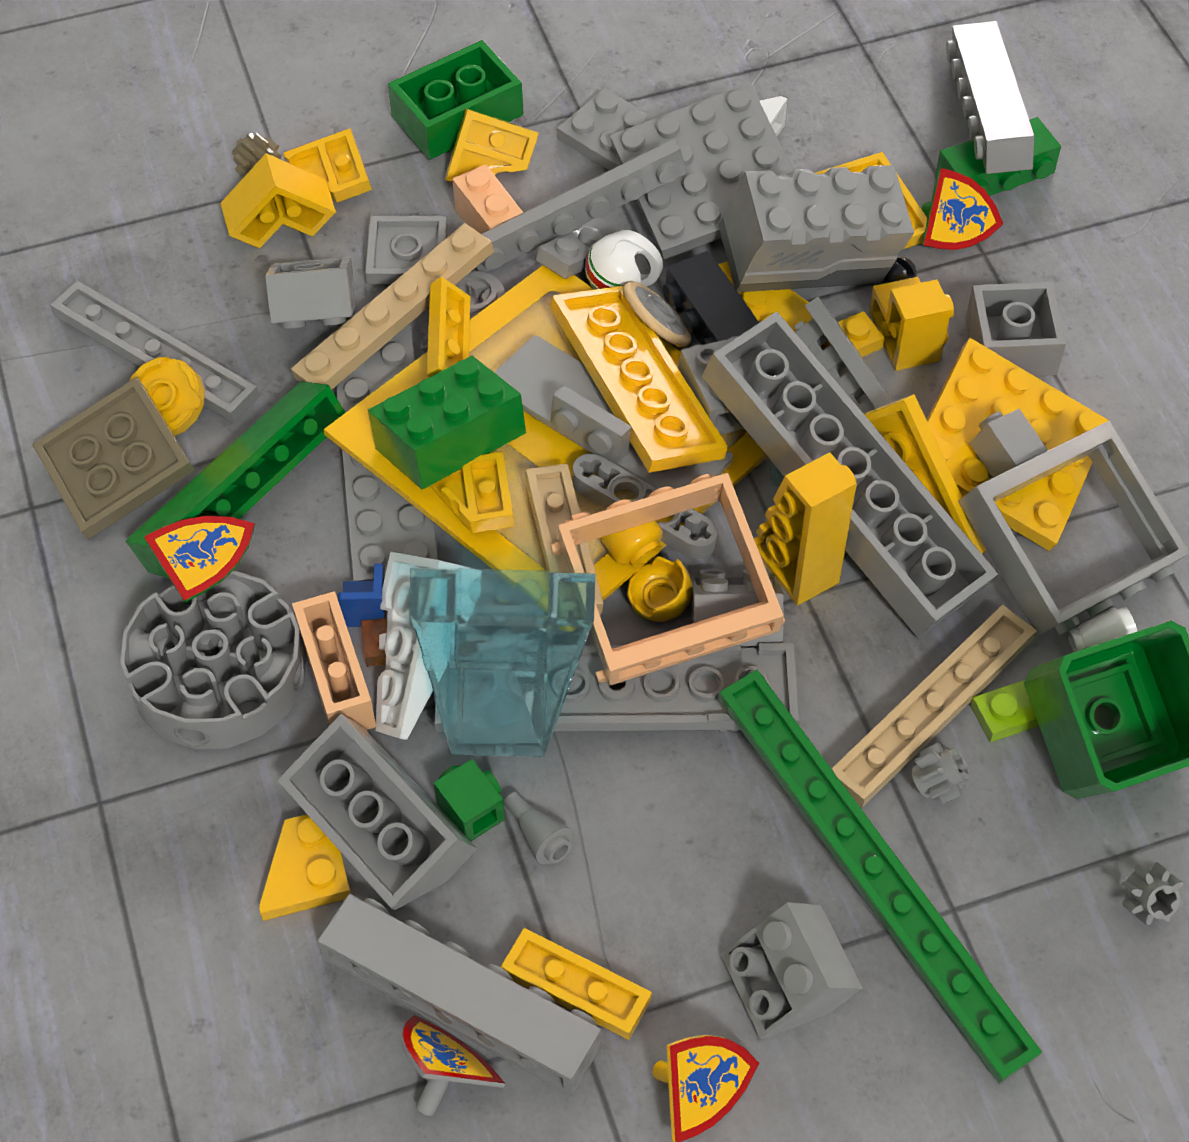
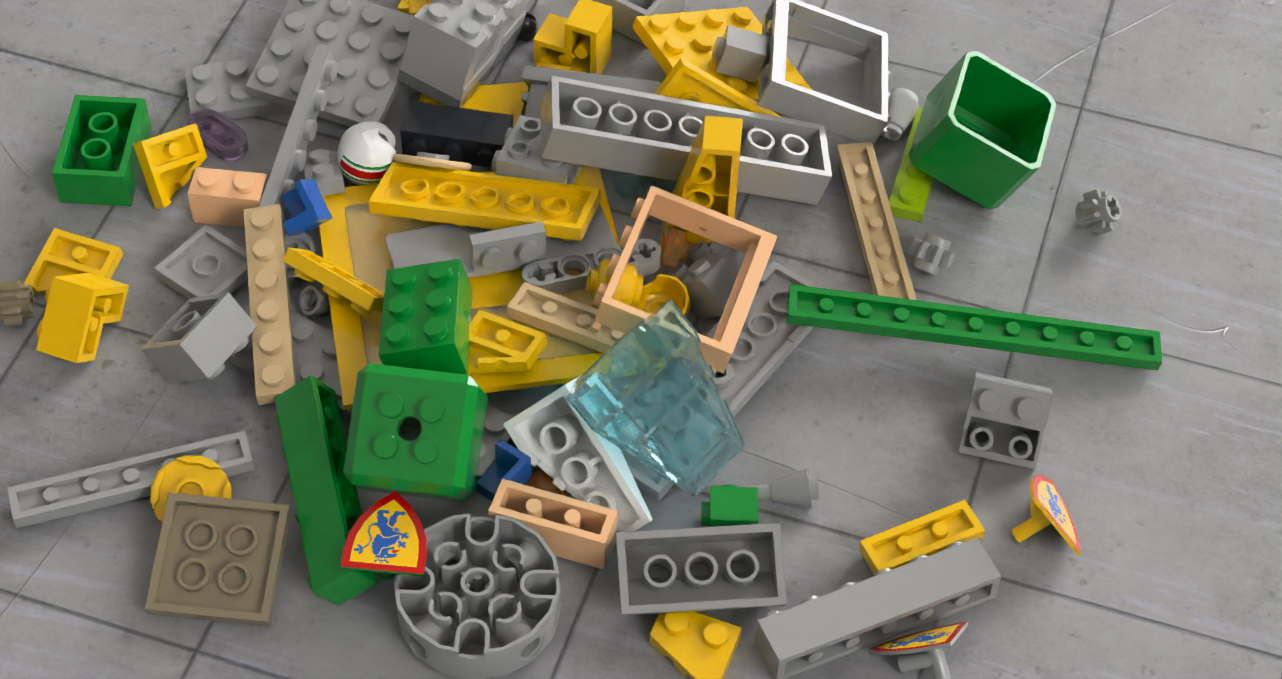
camera: 55 degrees left, 5 degrees down
(321, 496) = (446, 453): none -> green plate
(512, 262) = (305, 208): none -> blue panel
(553, 158) = (220, 134): none -> clear purple plate
(728, 555) = (673, 246): none -> clear orange plate

